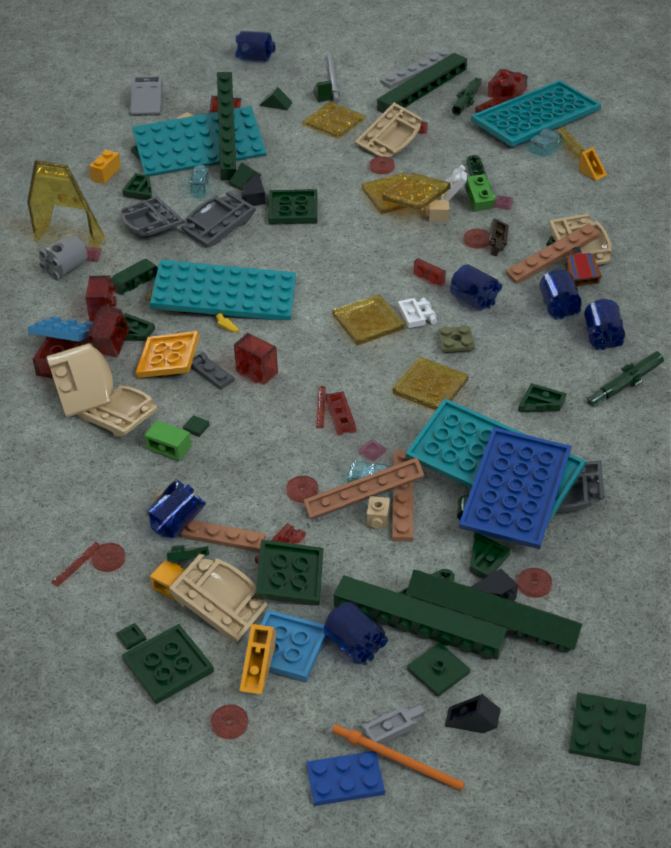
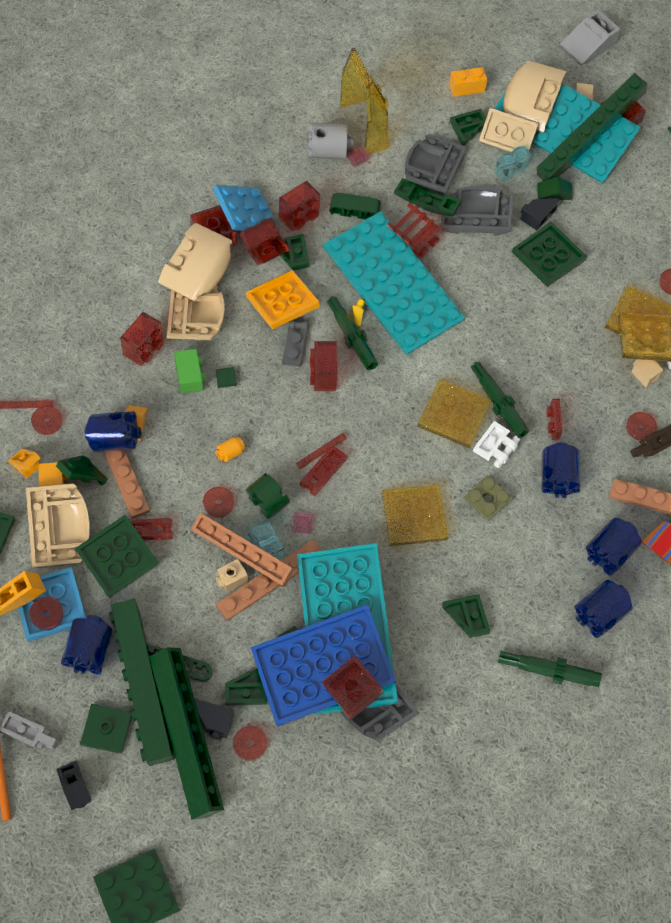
camera: 45 degrees right, 20 degrees up
(110, 448) = (142, 339): none -> clear red brick
(134, 588) = (25, 462): none -> light orange slope
(162, 138) = (533, 92): none -> tan slope
(171, 168) = (507, 131): none -> tan plate
(178, 237) = (427, 200): none -> dark green slope
(208, 246) = (424, 238): none -> clear red plate
(236, 334) = (353, 337): none -> dark green piece
(264, 455) = (230, 449): none -> light orange brick
(296, 655) = (46, 622): none -> clear red piece
(332, 450) = (267, 495): none -> dark green brick
(390, 290) = (502, 403): none -> dark green piece
(558, 467) = (352, 687): none -> clear red brick

